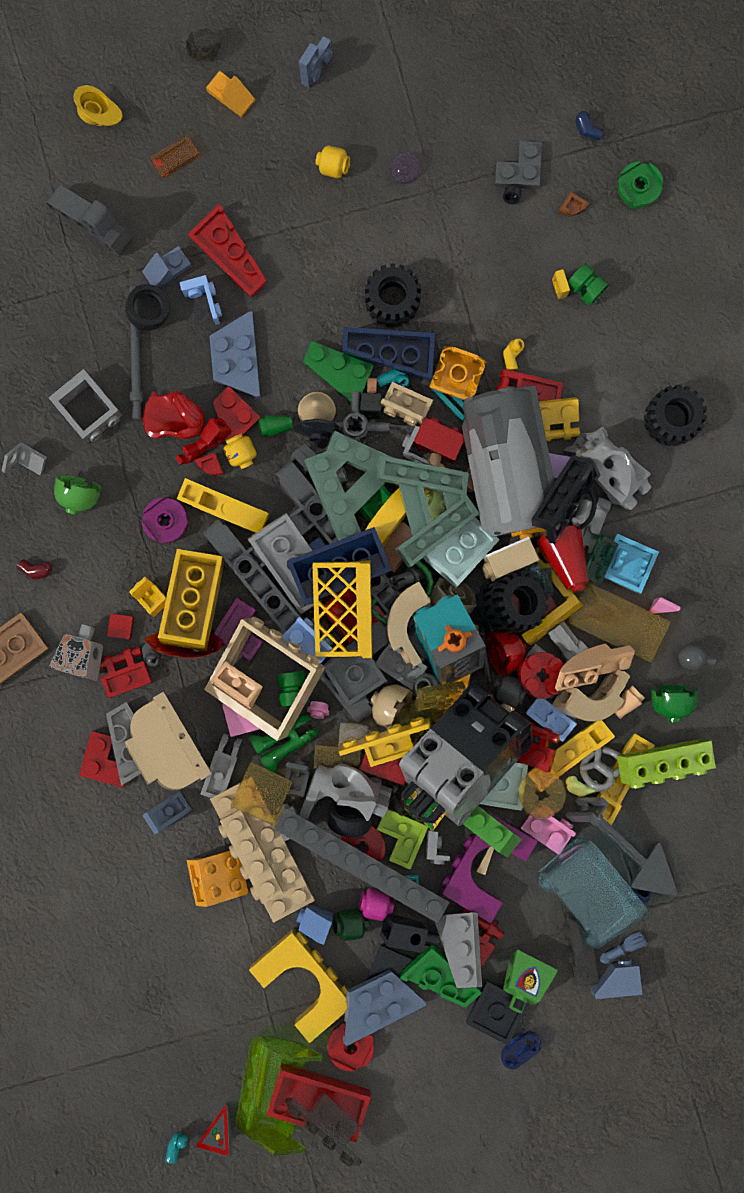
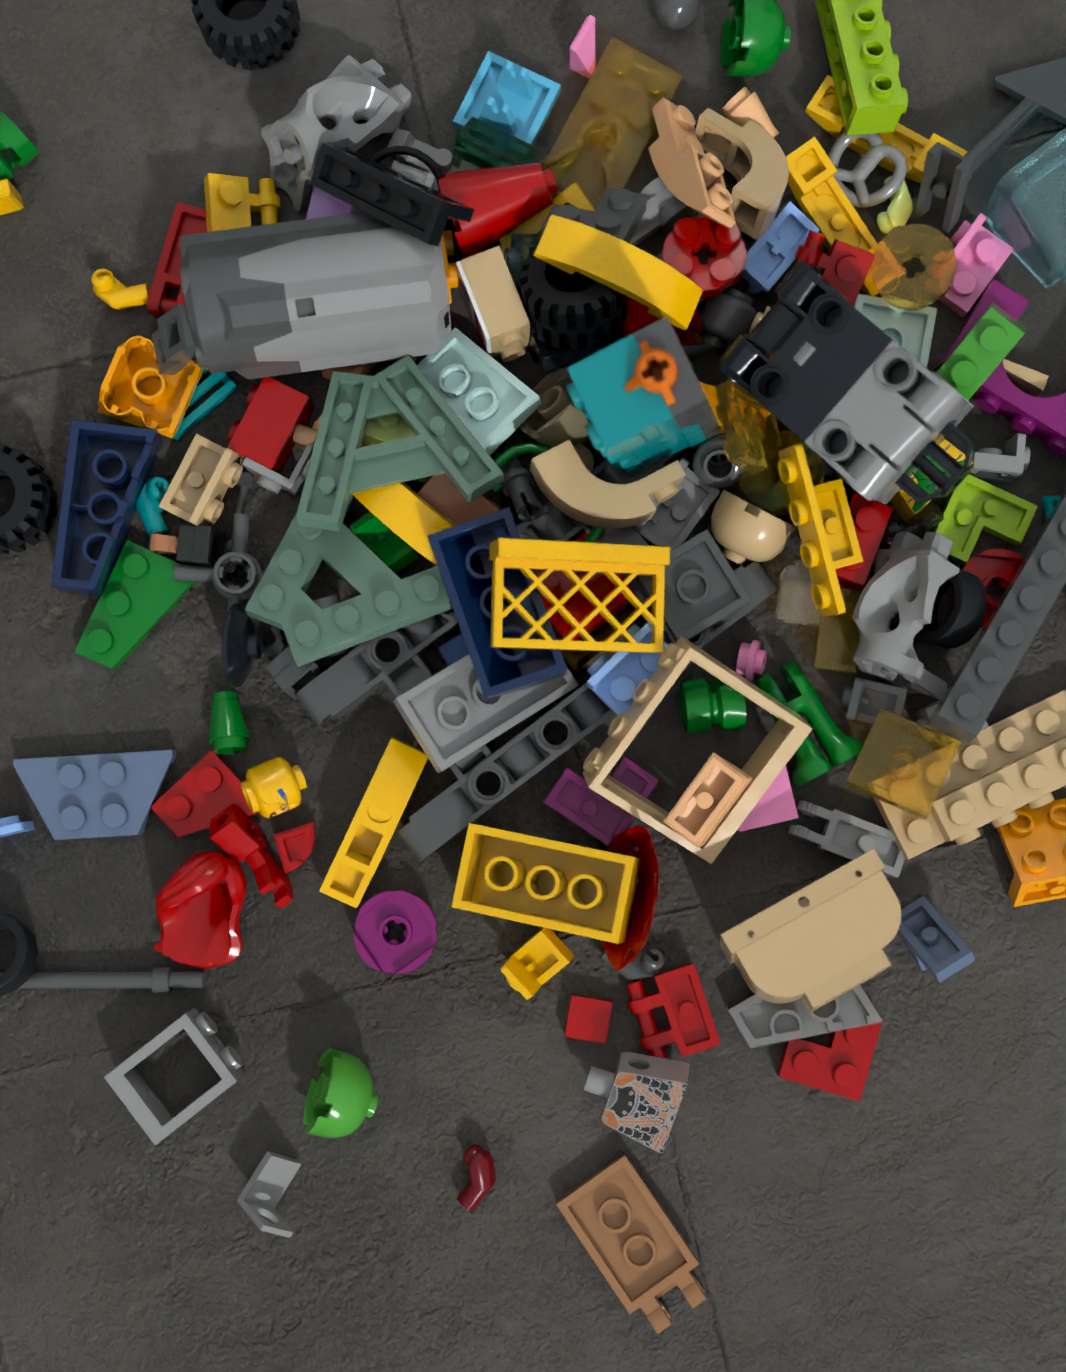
camera: 90 degrees left, 0 degrees up
(316, 406) = (197, 647): tan hat -> none
(478, 385) = (173, 341): none -> dark grey slope
(525, 626) = (620, 267): none -> yellow slope
(550, 615) = (615, 214): none -> dark grey plate

